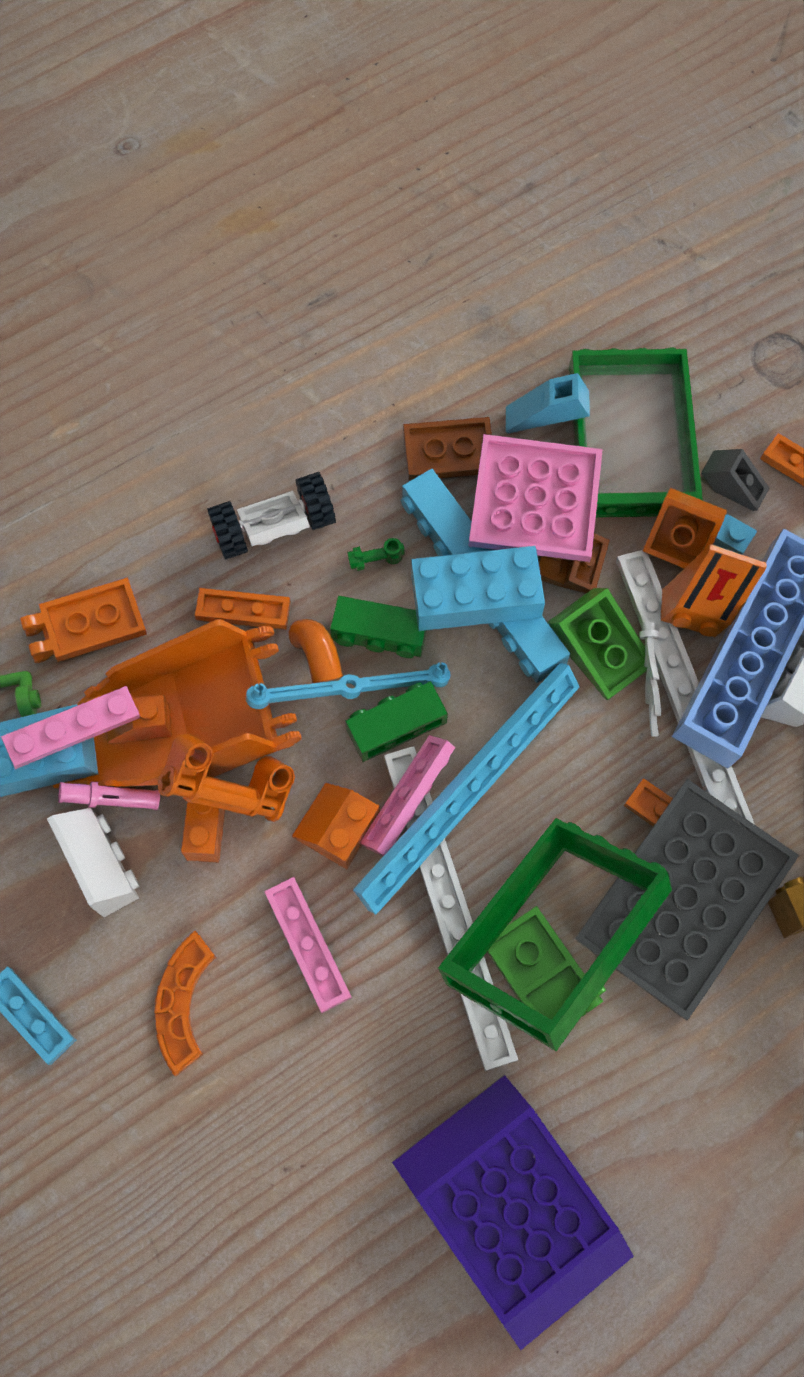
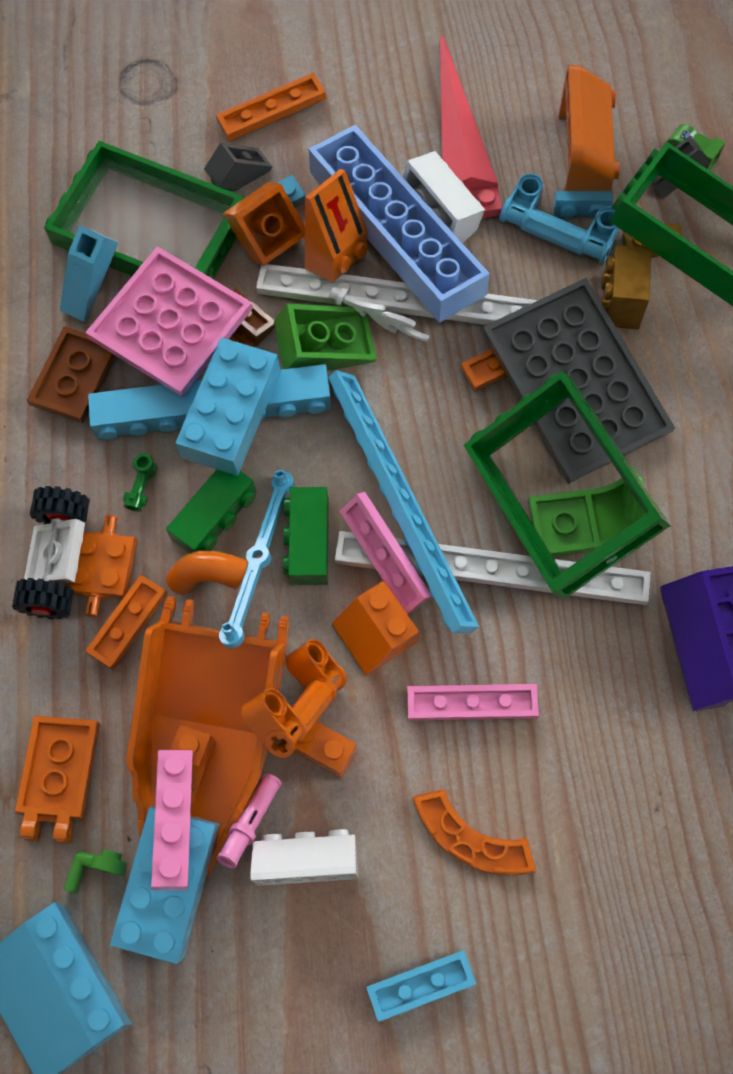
camera: 60 degrees left, 0 degrees up
(285, 563) = (104, 566): none -> orange plate

